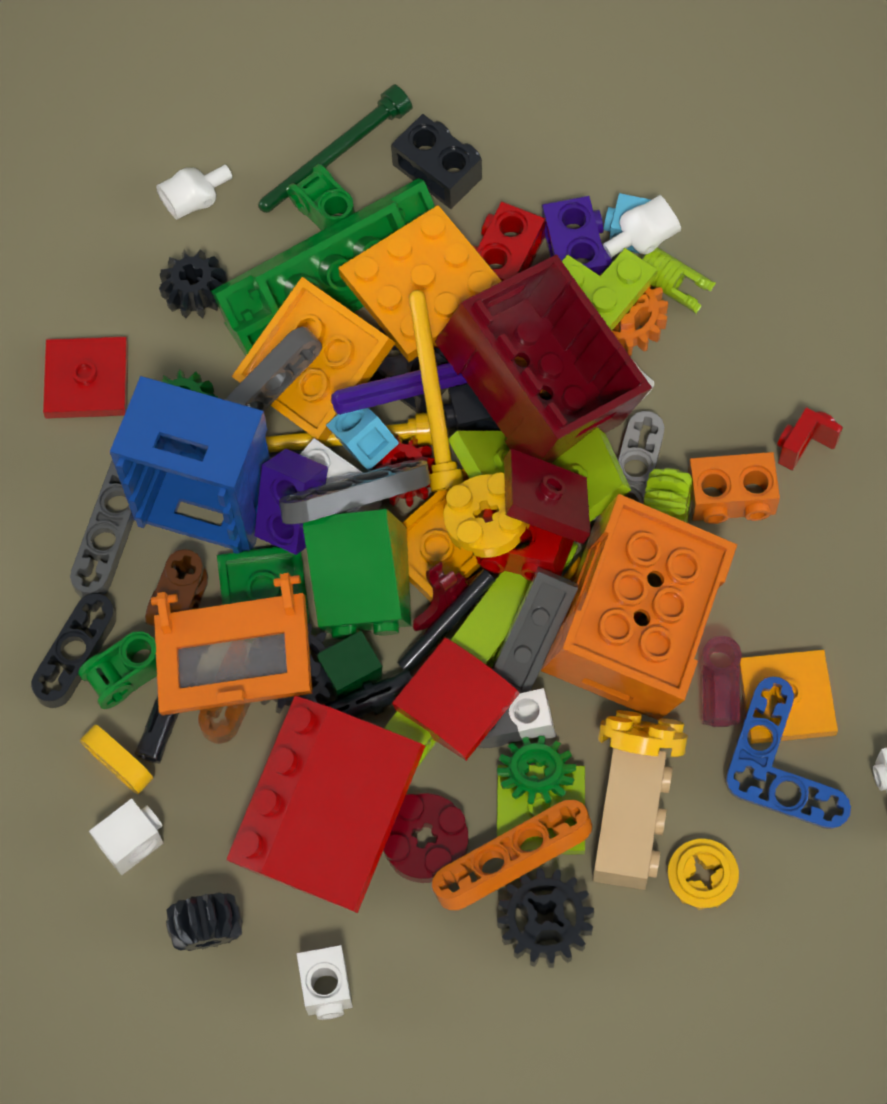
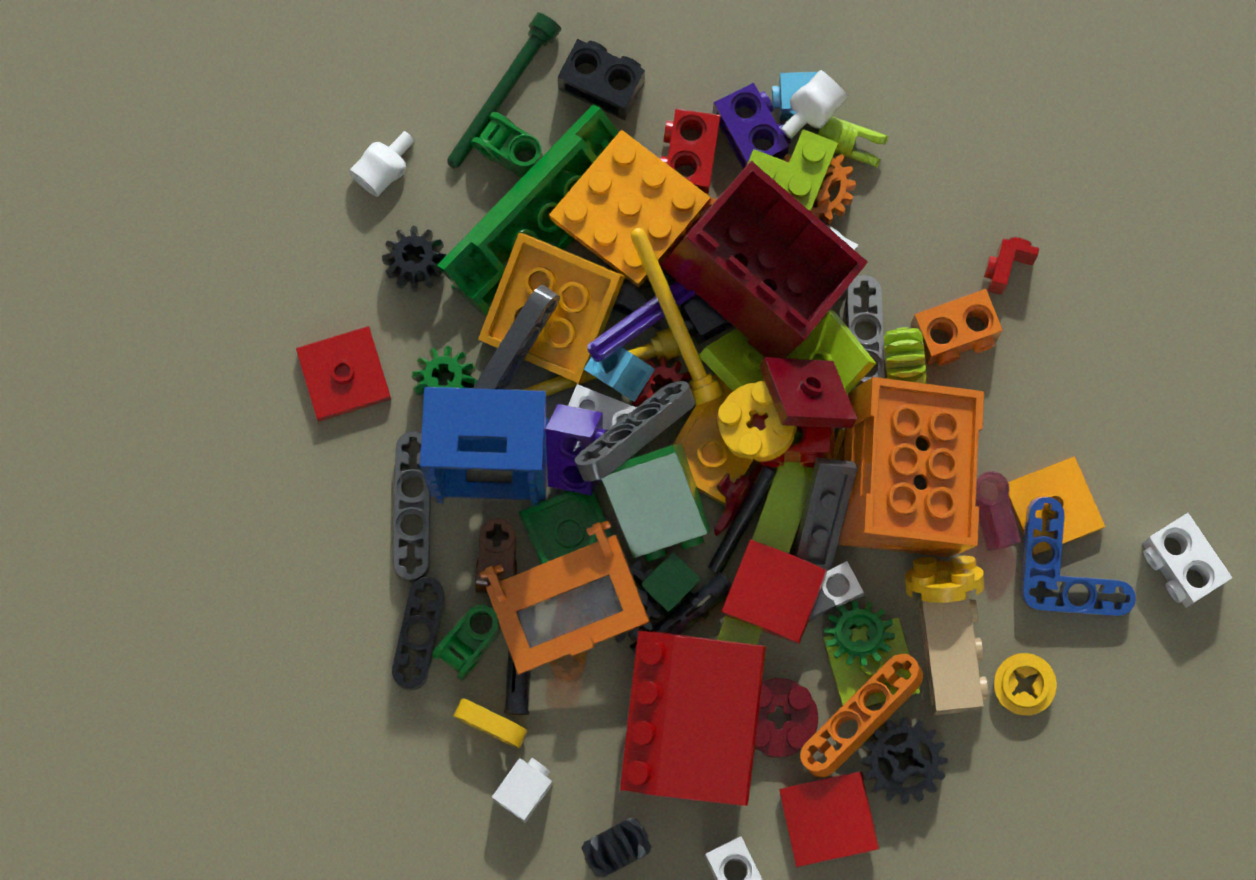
camera: 20 degrees left, 10 degrees up
(445, 958) = (829, 819): none -> red slope

